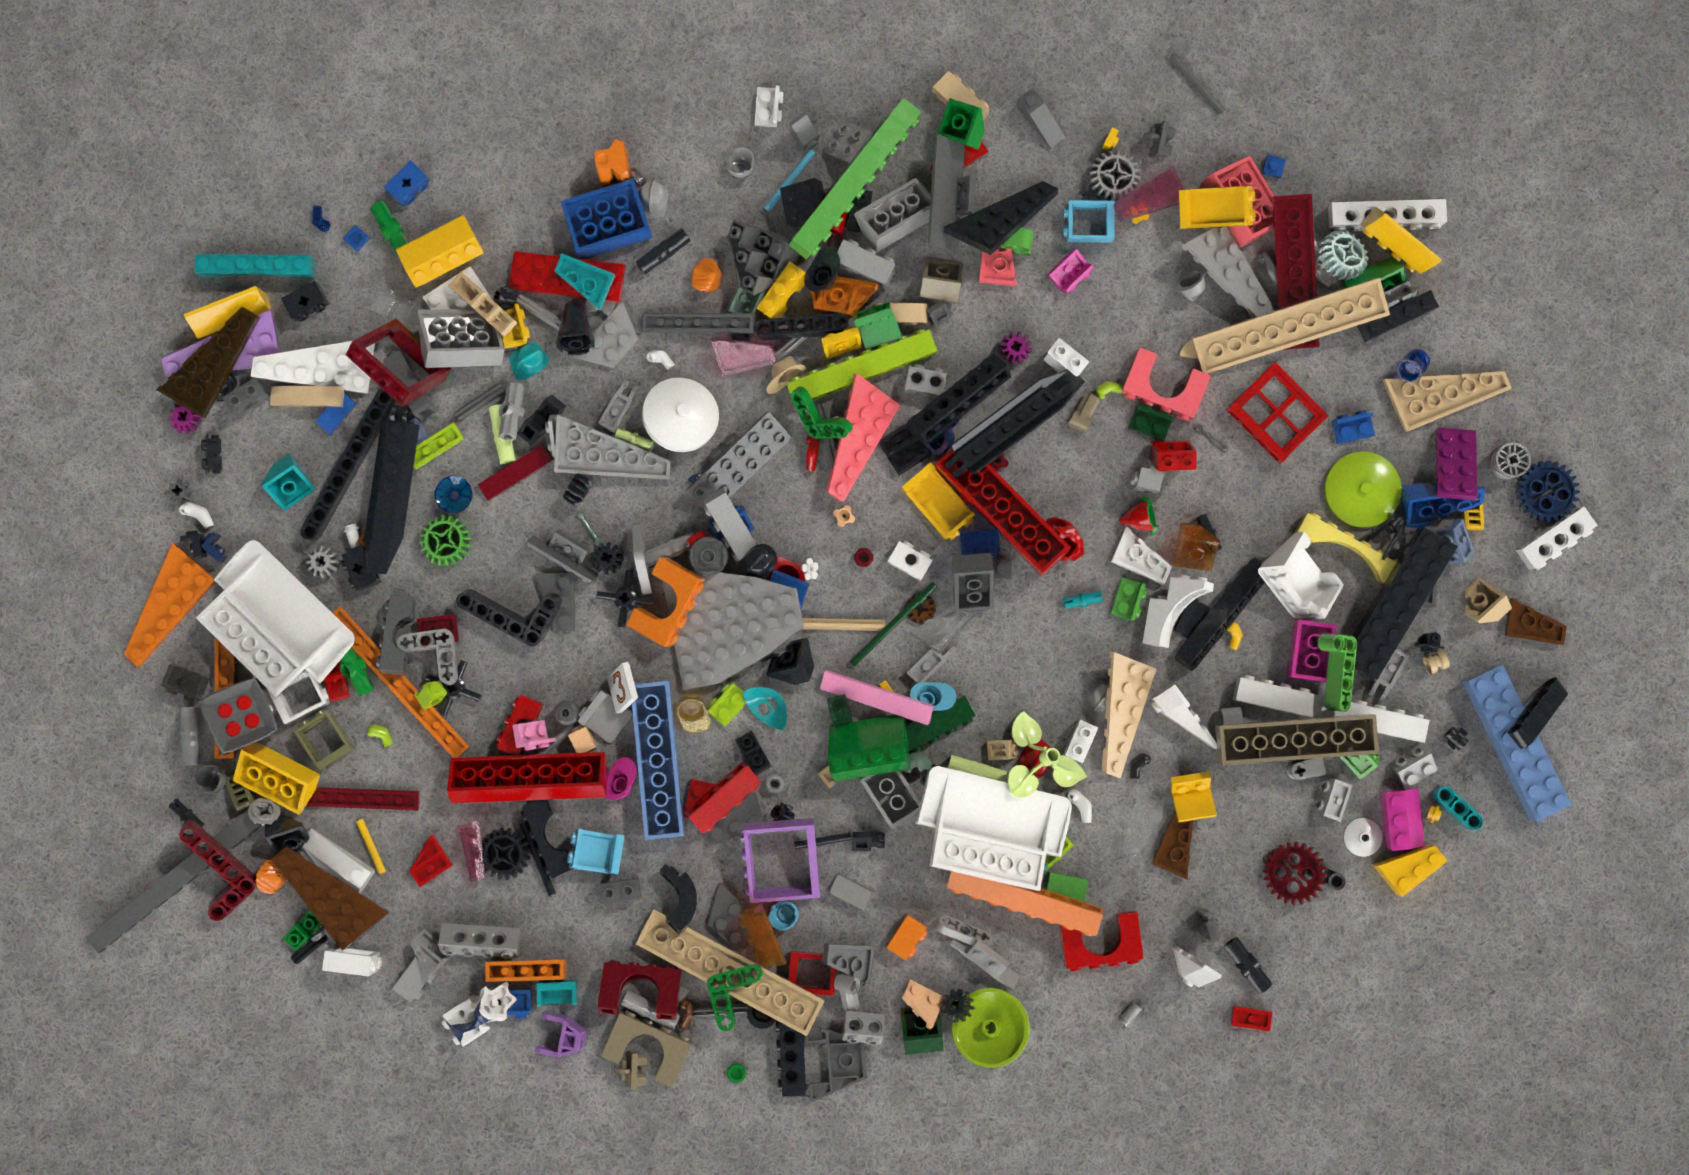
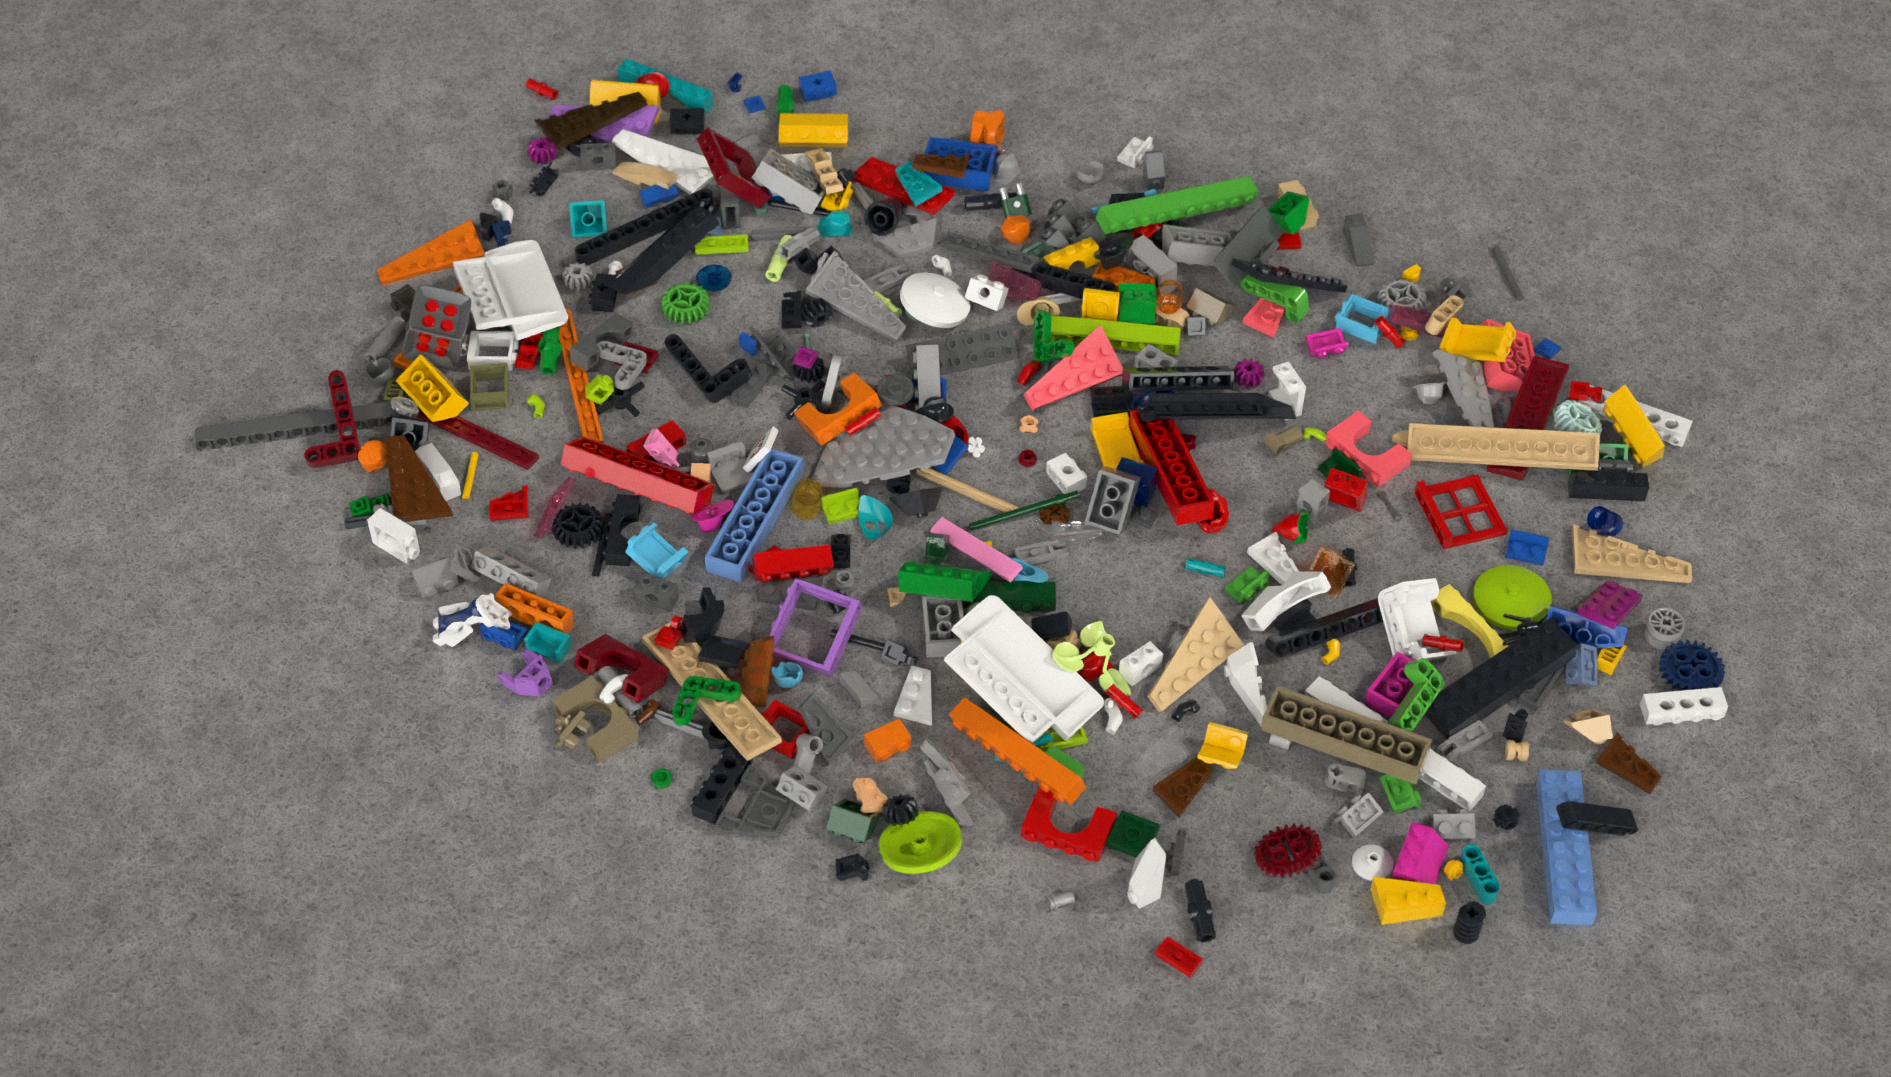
camera: 30 degrees right, 35 degrees down
(131, 332) = (541, 89): none -> red pin
(244, 277) = (655, 79): none -> red piece
(515, 472) = (771, 287): dark red tile -> none
(533, 559) = (748, 343): none -> blue tile
(550, 495) = (792, 310): none -> black hinge
(601, 244) = (948, 165): none -> reddish brown wing
(602, 559) = (805, 357): none -> magenta plate
(648, 1018) = (611, 687): none -> white arm
(661, 936) = (670, 636): none -> red plate
(692, 247) = (1016, 205): none -> dark green piece
(699, 609) = (862, 421): none -> red pin
(718, 926) = (723, 651): none -> black slope
(724, 379) = (977, 293): none -> white brick
(904, 875) = (915, 697): none -> white wing
(905, 304) = (1168, 302): none -> clear orange helmet
(945, 1077) = (851, 867): none -> black bracket
(985, 744) = (1052, 625): none -> black slope
(1085, 789) = (1124, 701): none -> red pin
(1124, 230) = (1389, 332): none -> red pin
(1158, 919) = (1131, 834): none -> dark green plate
(1173, 179) = (1441, 316): none -> tan beam
(1330, 584) = (1442, 643): none -> red pin
(1335, 219) = (1582, 391): none -> red plate
(1473, 868) = (1469, 922): none -> black piece

